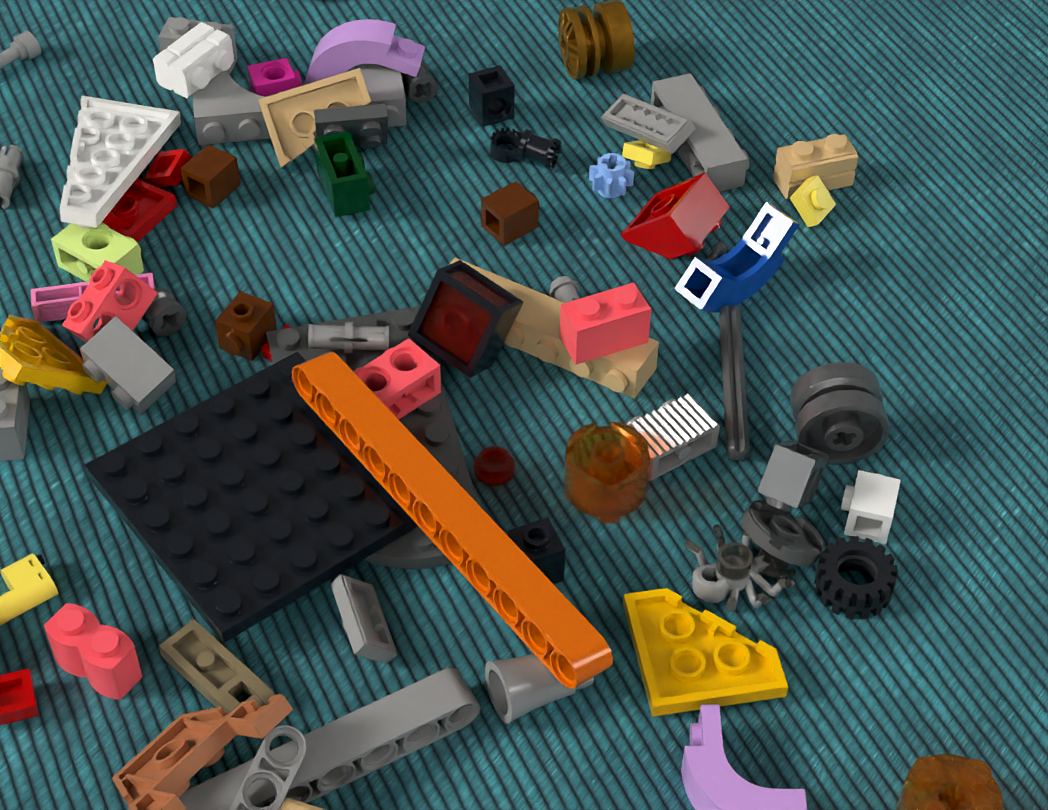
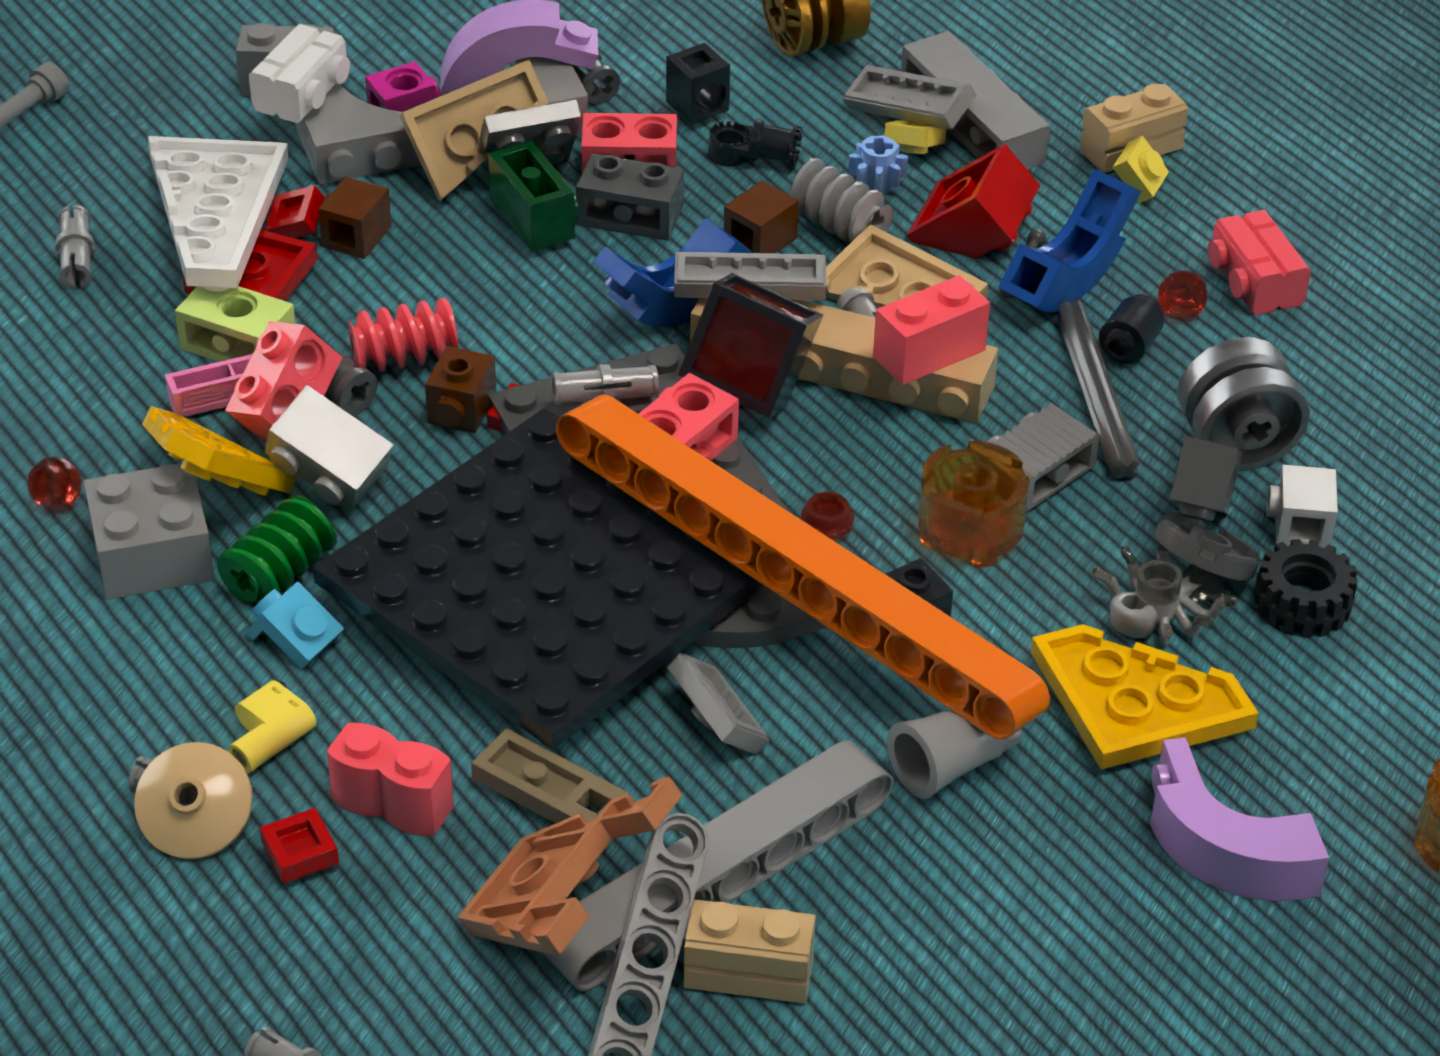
camera: 10 degrees left, 5 degrees down
(65, 507) = (295, 623): none -> medium azure bracket
(68, 442) = (276, 550): none -> green piece
(213, 278) = (403, 334): none -> coral piece
(416, 263) = (650, 290): none -> blue arch
(417, 181) = (630, 196): none -> dark grey brick
(428, 142) = (630, 137): none -> coral brick
(493, 261) = (786, 274): none -> light grey plate
(573, 206) = (838, 201): none -> light grey piece
(600, 266) = (889, 269): none -> tan wing
(772, 334) = (1132, 328): none -> black brick
(819, 310) = (1182, 294): none -> clear red plate
(886, 289) = (1259, 262): none -> coral brick

